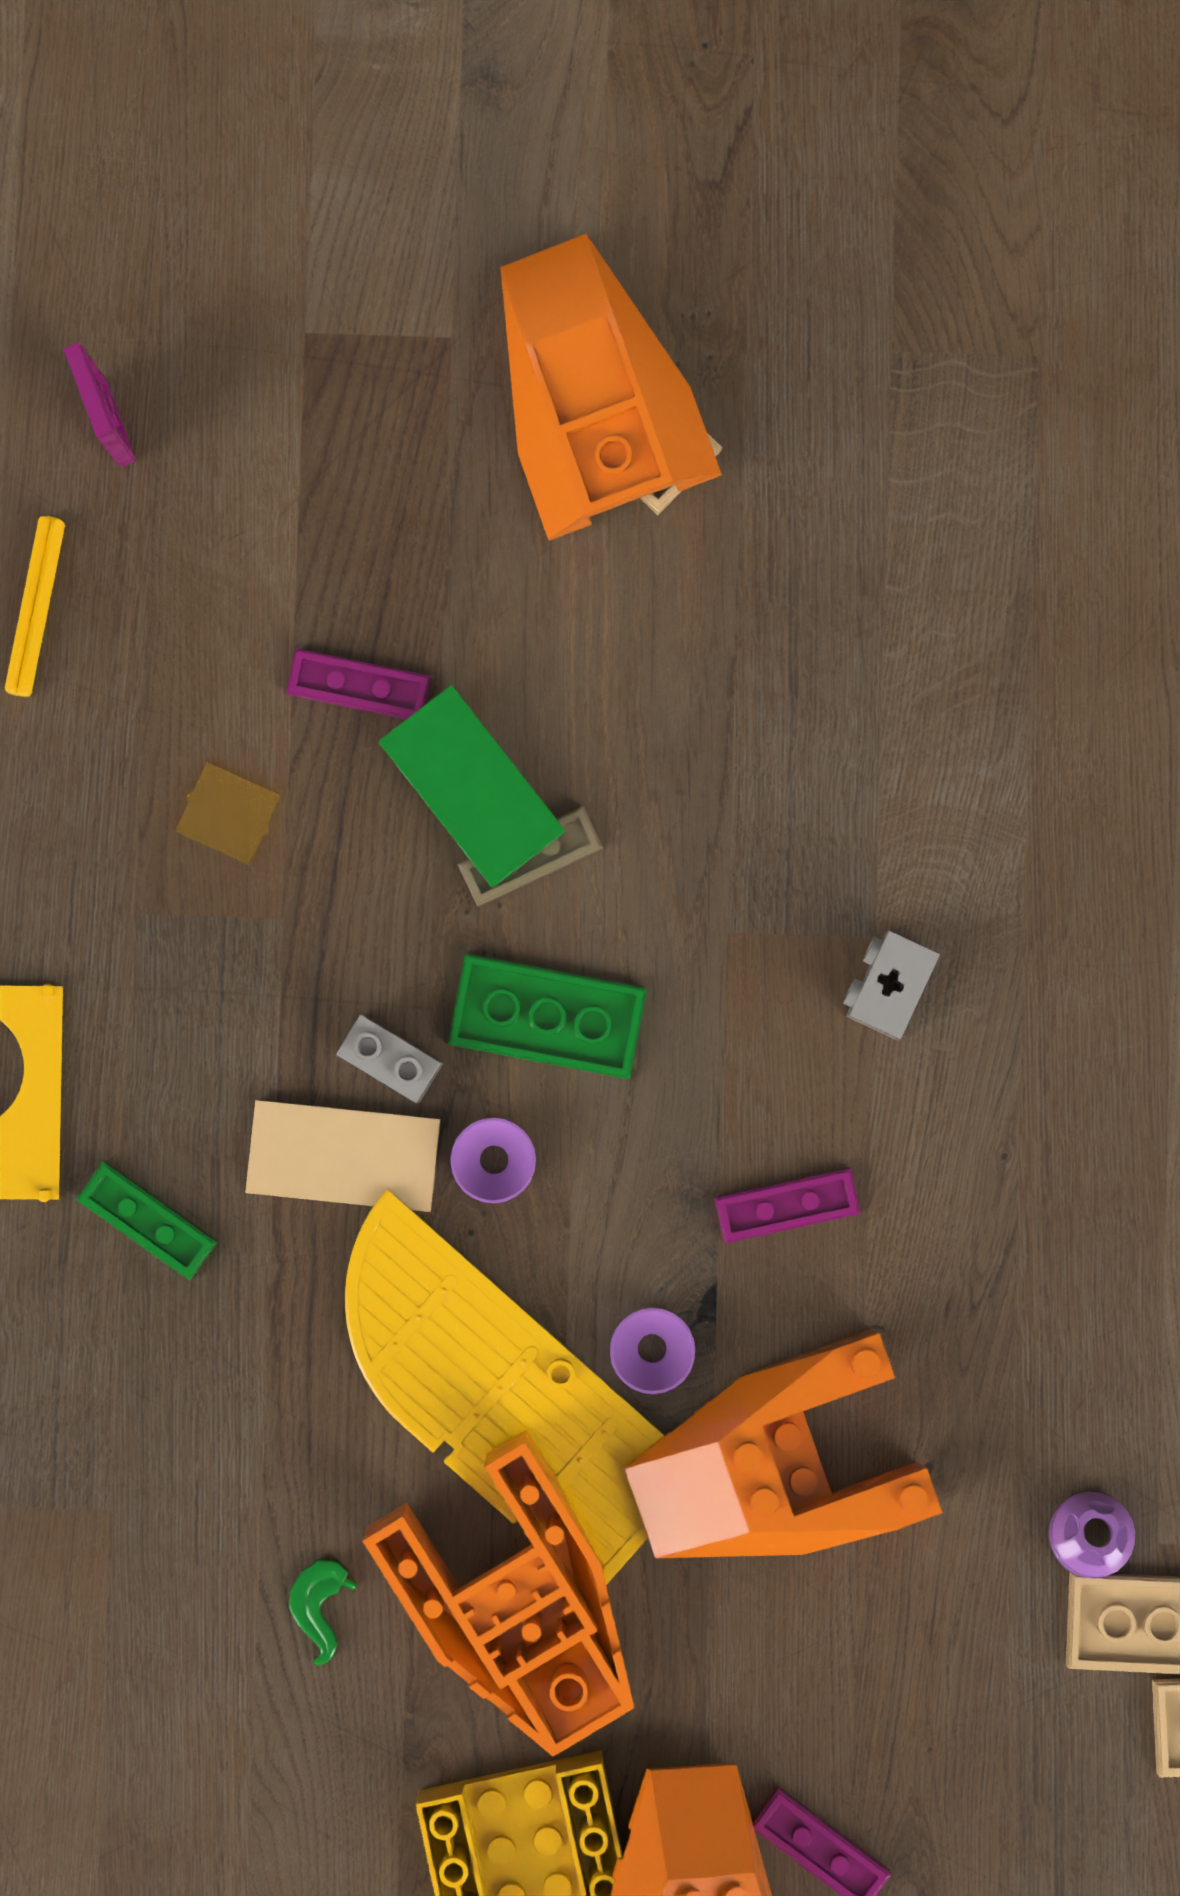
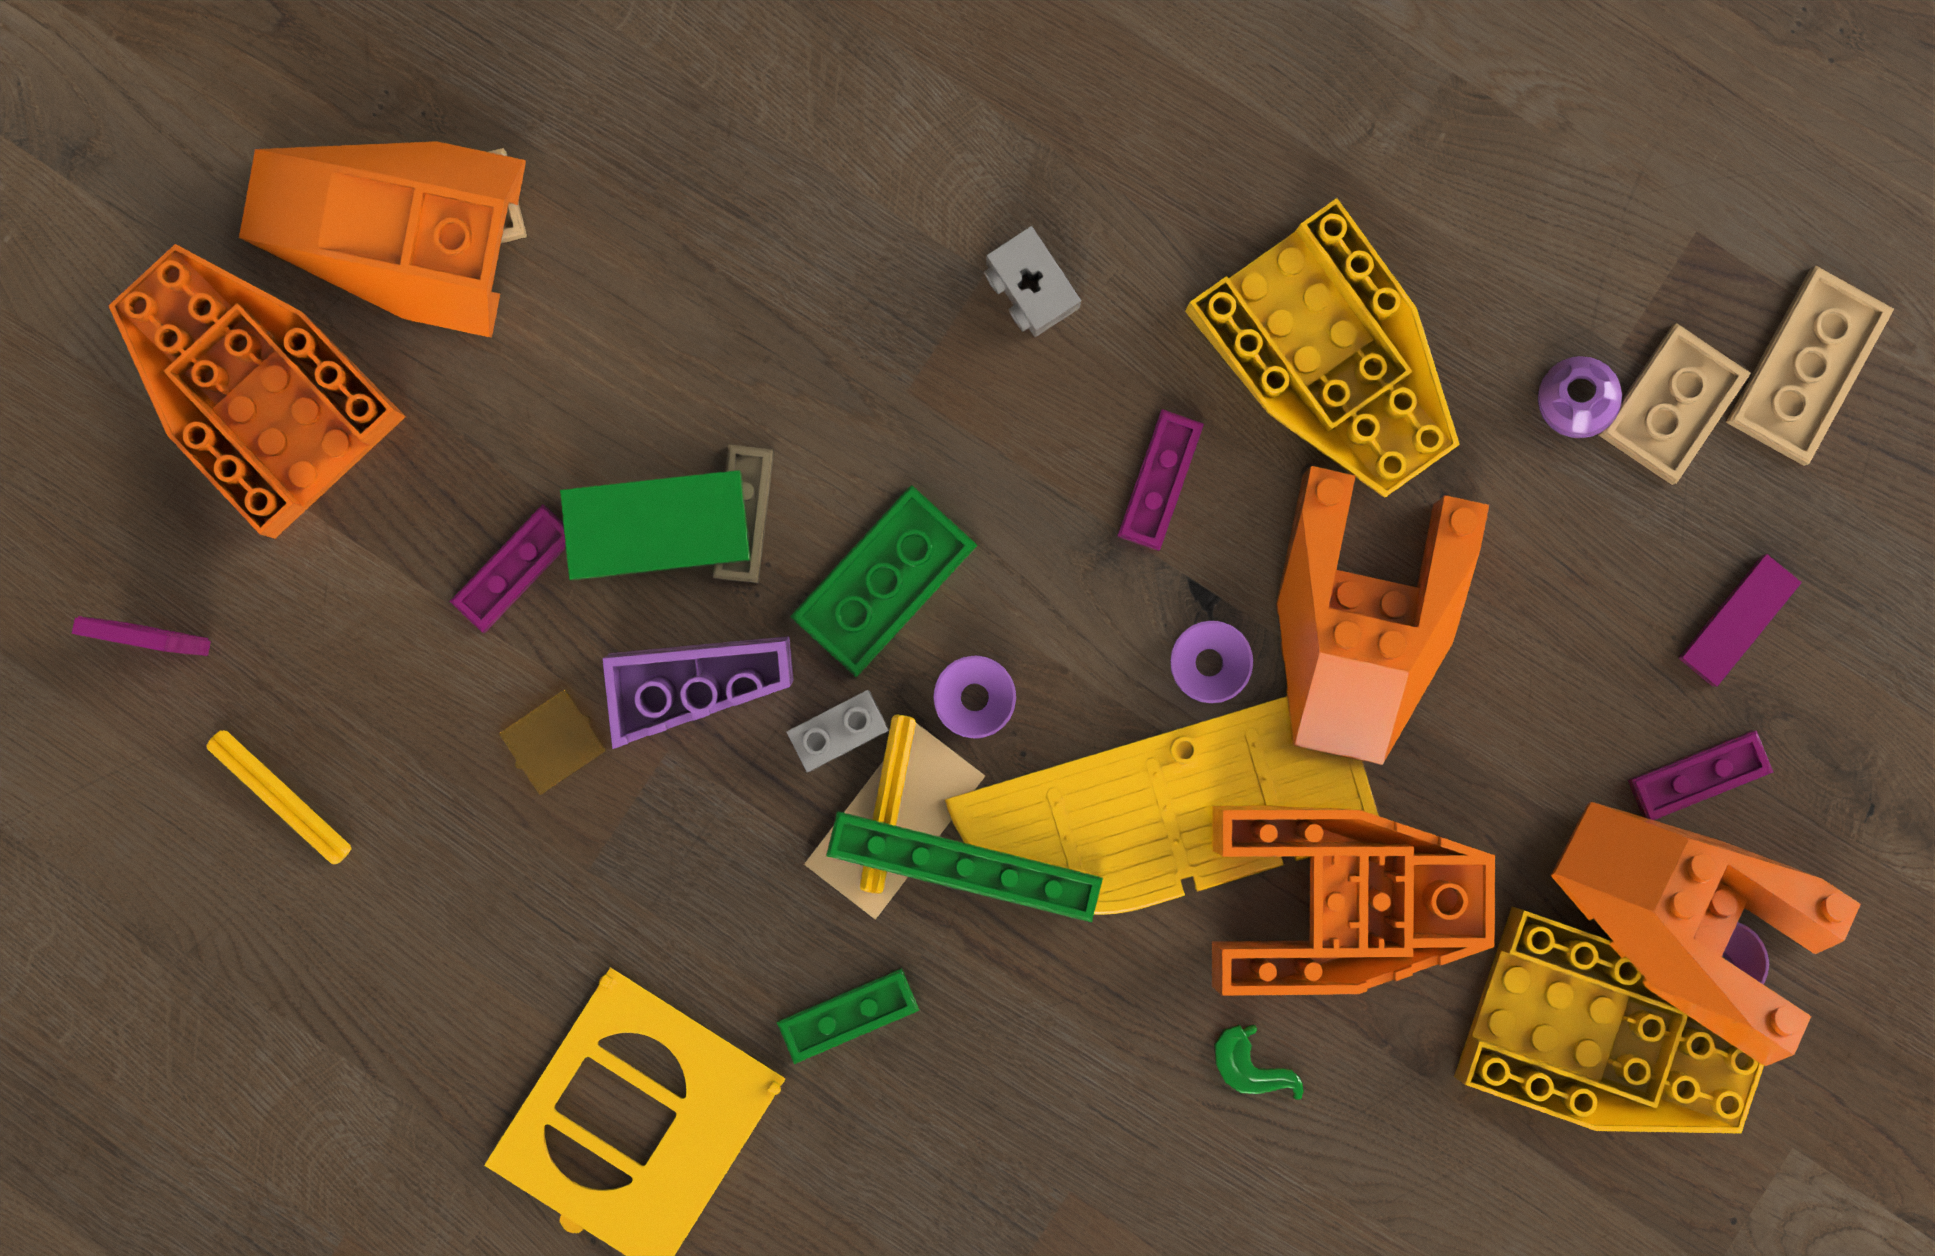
camera: 60 degrees left, 0 degrees up
(338, 1243) = (964, 866): none -> green tile
(352, 902) = (685, 683): none -> medium lavender wedge
(352, 1141) = (890, 789): none -> yellow axle
(374, 358) = (248, 387): none -> orange wedge
(981, 1800) = (1739, 620): none -> magenta tile
(995, 1290) = (1333, 351): none -> yellow wedge

